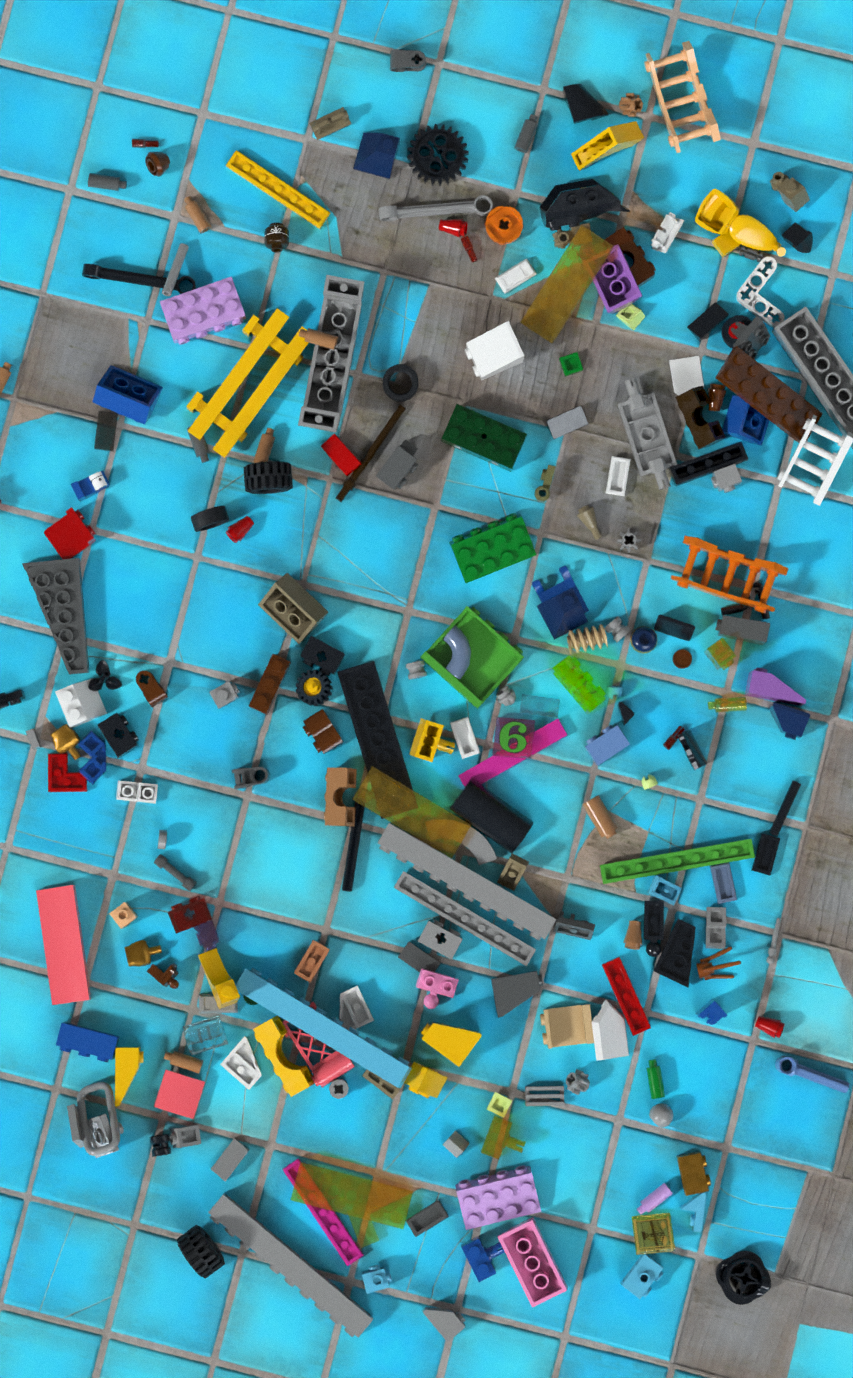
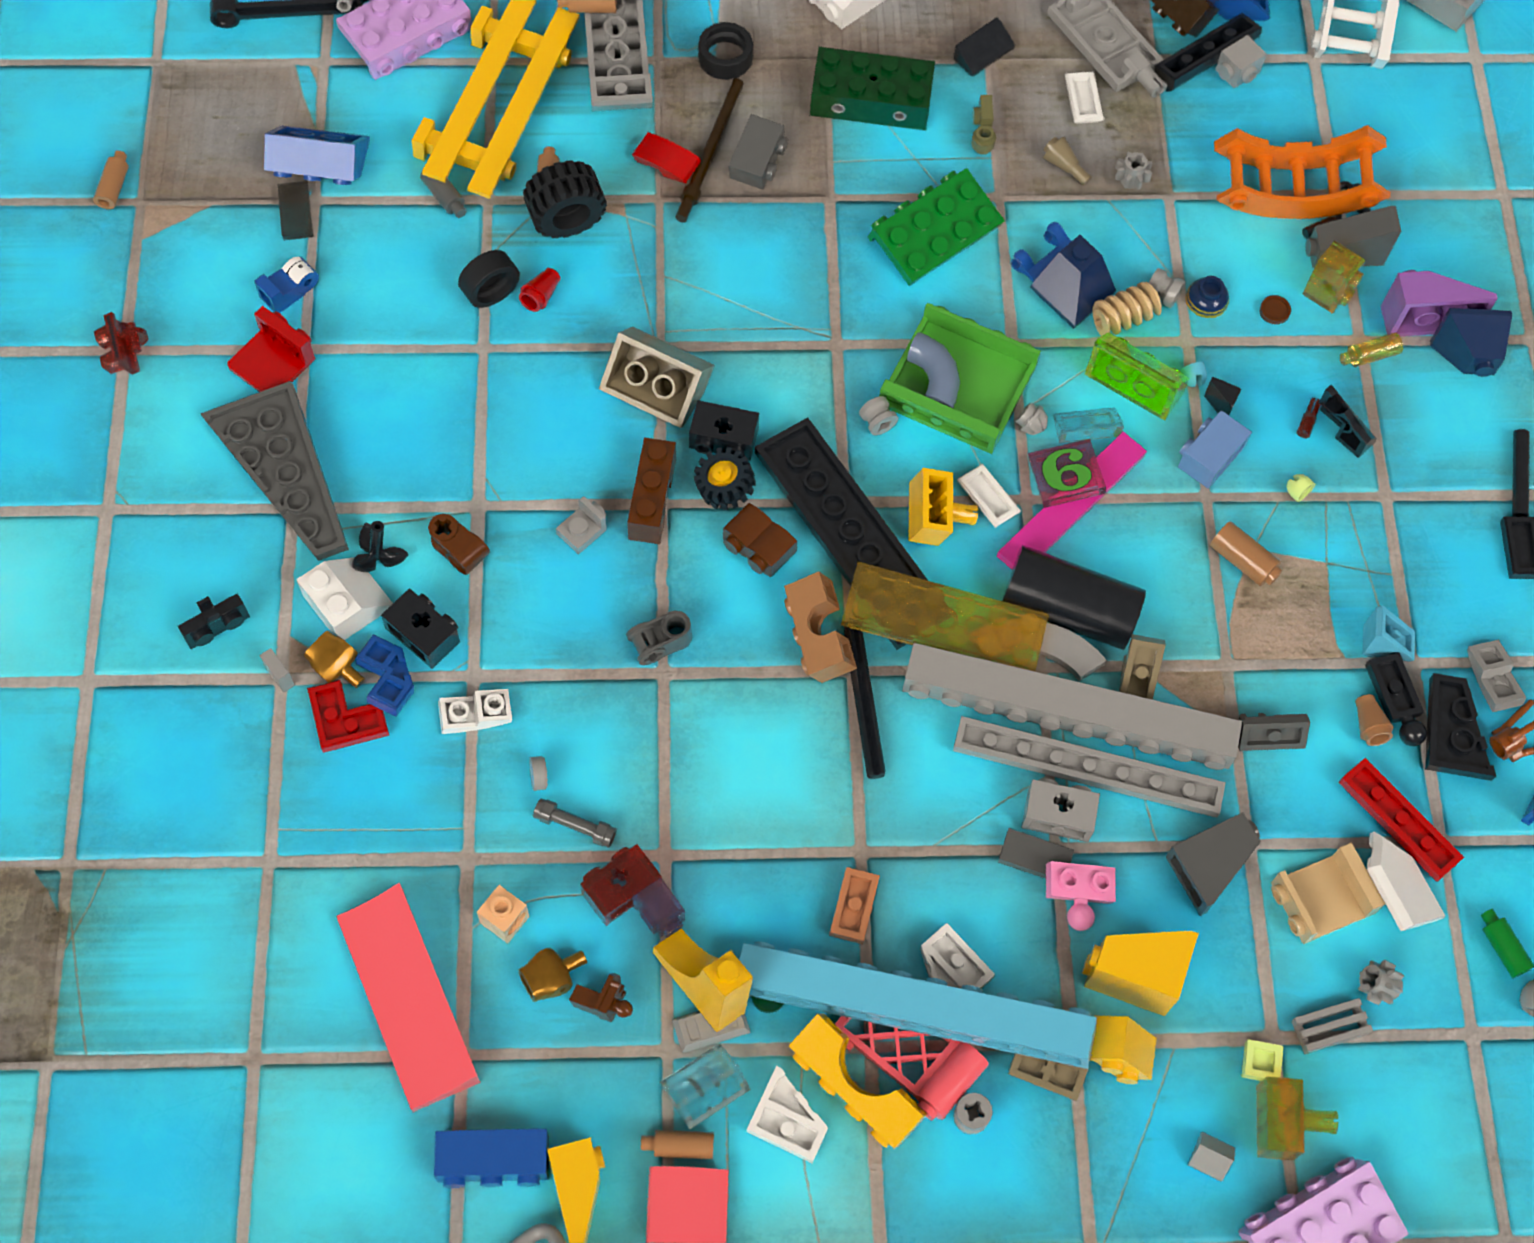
camera: 20 degrees left, 20 degrees down
(674, 627) = (1247, 266): black slope -> none
(677, 861) = (1391, 590): bright green plate -> none
(723, 883) = (1476, 606): sand blue tile -> none

